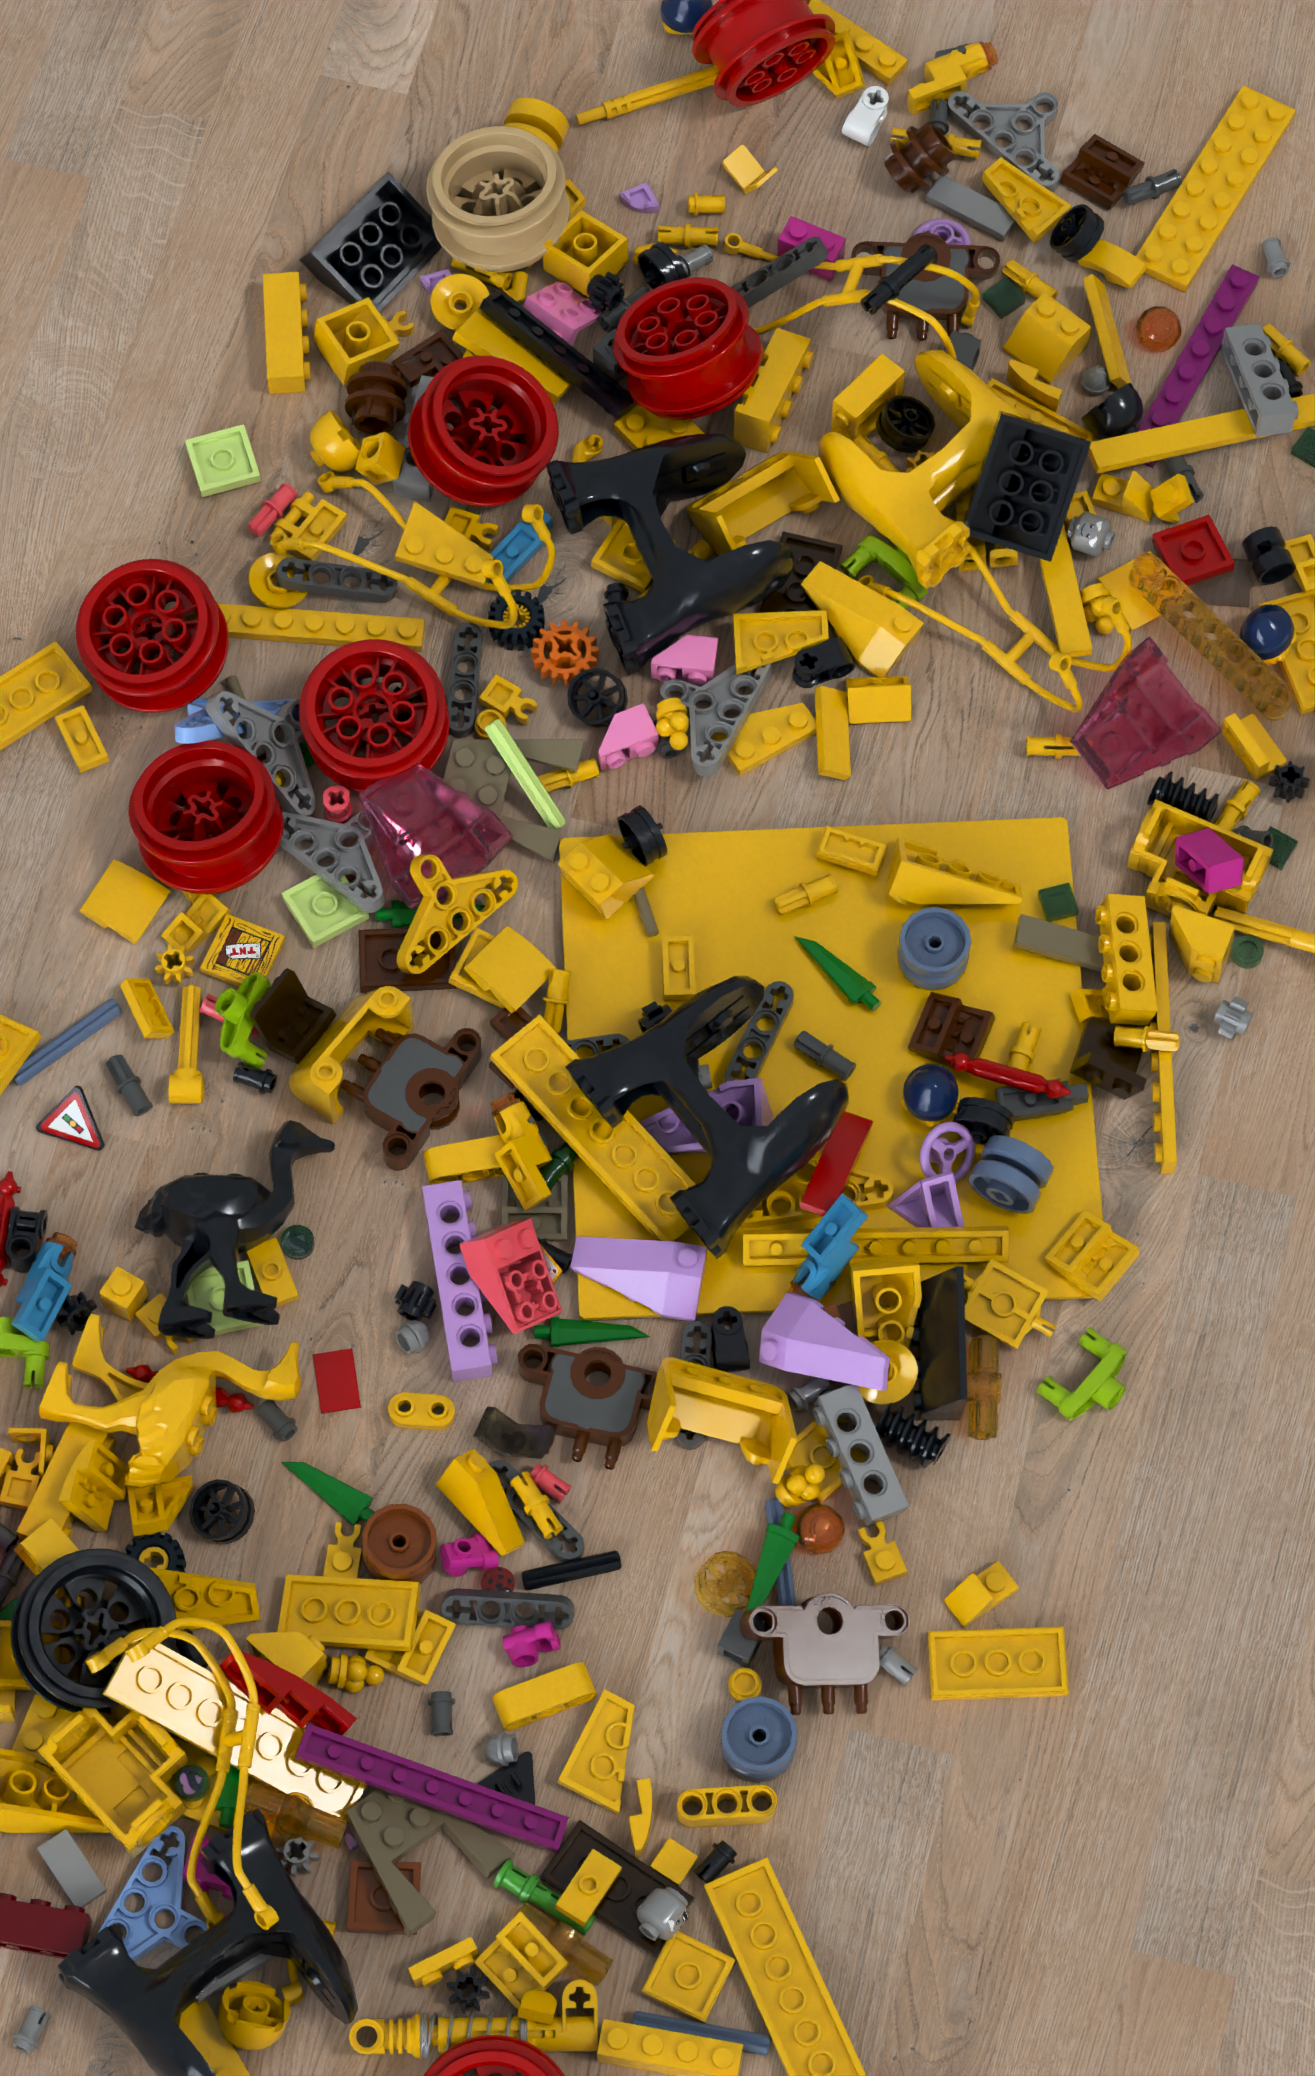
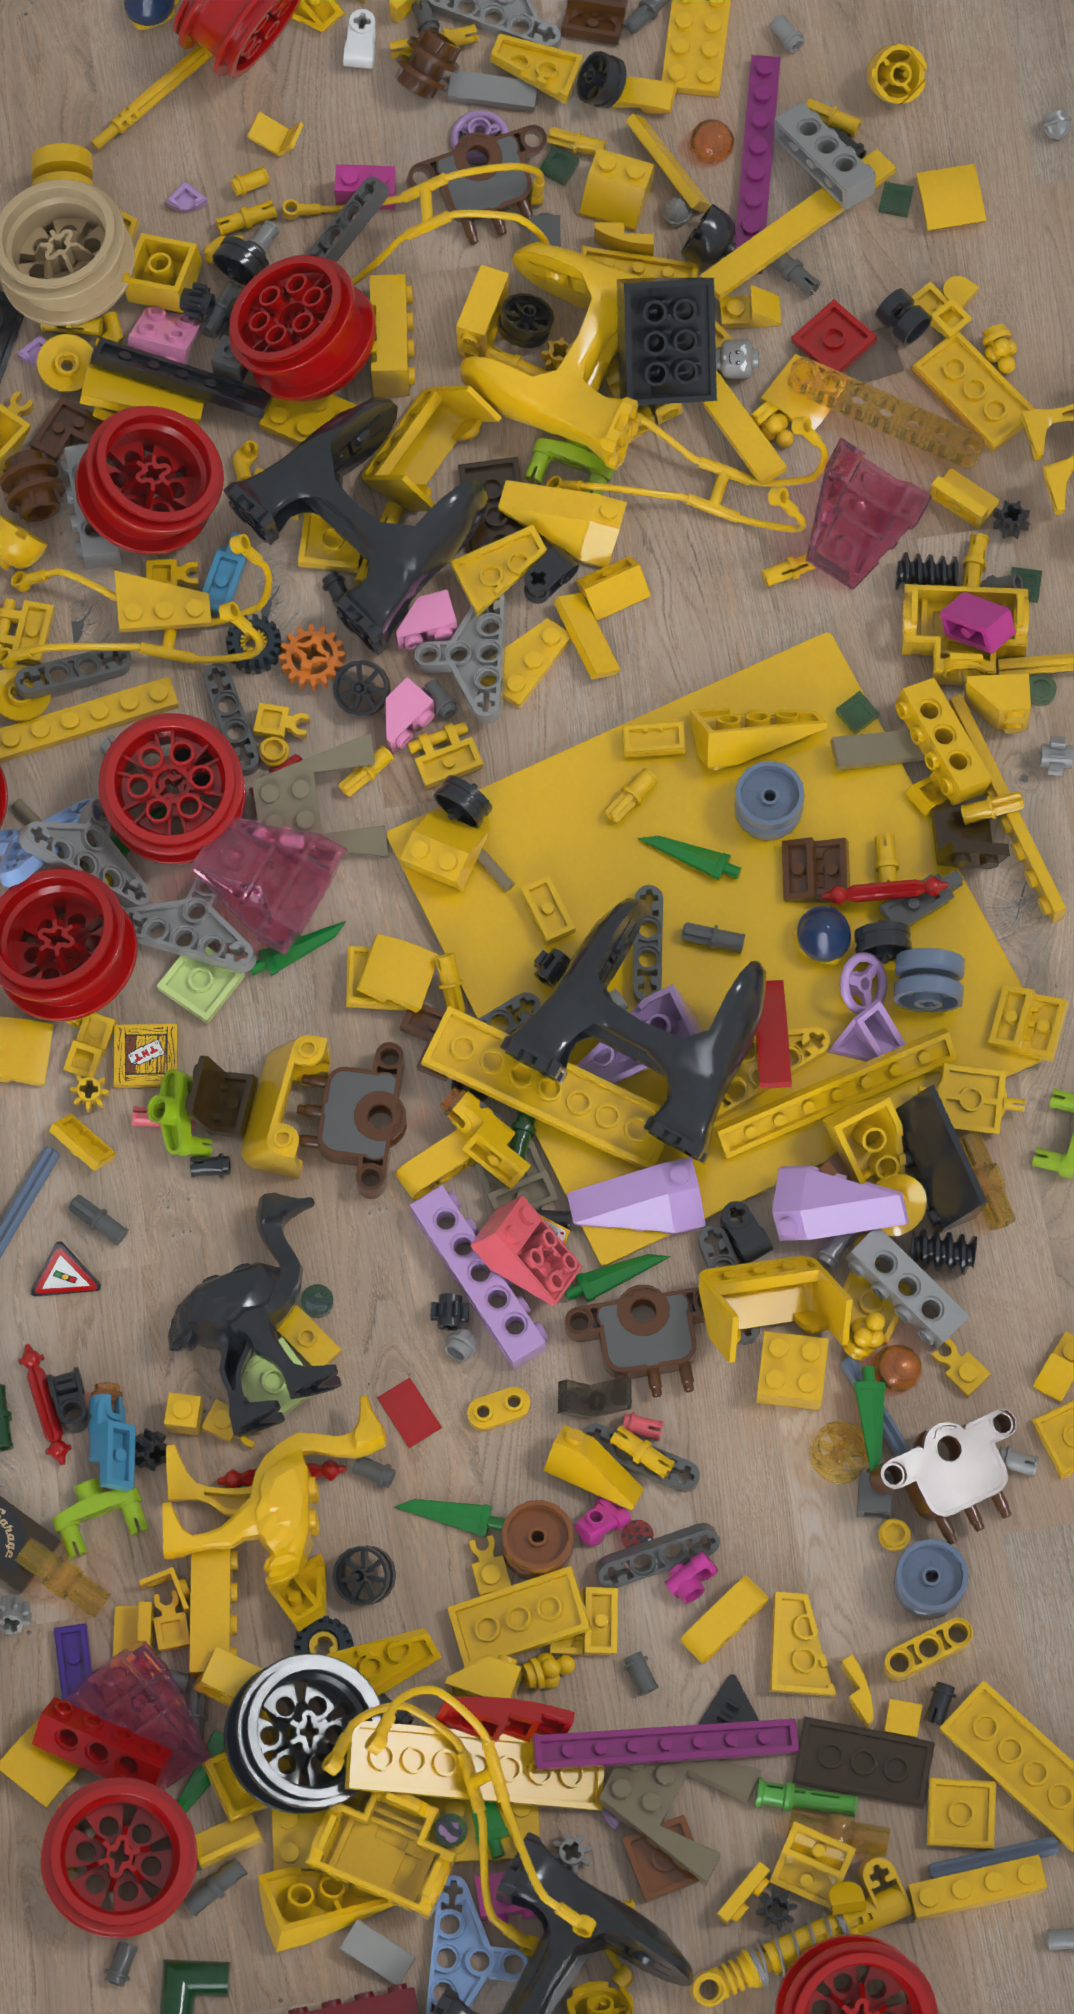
camera: 20 degrees left, 5 degrees up
(94, 1485) = (238, 1599): yellow slope -> none
(186, 1082) = (150, 1194): yellow axle -> none
(295, 1815) = (559, 1821): clear yellow piece -> none
(338, 812) = (175, 889): coral bush -> none
(379, 963) = (296, 999): reddish brown tile -> none
(380, 458) = (63, 541): yellow brick -> none
(438, 917) = (312, 951): yellow beam -> none
(502, 1748) = (708, 1682): light grey plate -> none
(524, 774) = (330, 787): yellowish green axle -> none
(571, 1570) = (696, 1496): black axle -> none
(588, 1887) = (841, 1774): yellow plate -> none
(657, 798) = (456, 759): none -> yellow plate
(662, 1913) = (917, 1769): light grey head -> none
(673, 722) = (441, 684): yellow piece -> none
(715, 1488) = (792, 1370): none -> yellow brick
(828, 1249) = (800, 1114): dark azure plate -> none
(889, 286) = (468, 201): black pin -> none
(1171, 498) = (795, 297): yellow bracket -> none
(1269, 633) = (935, 389): dark blue hair -> none

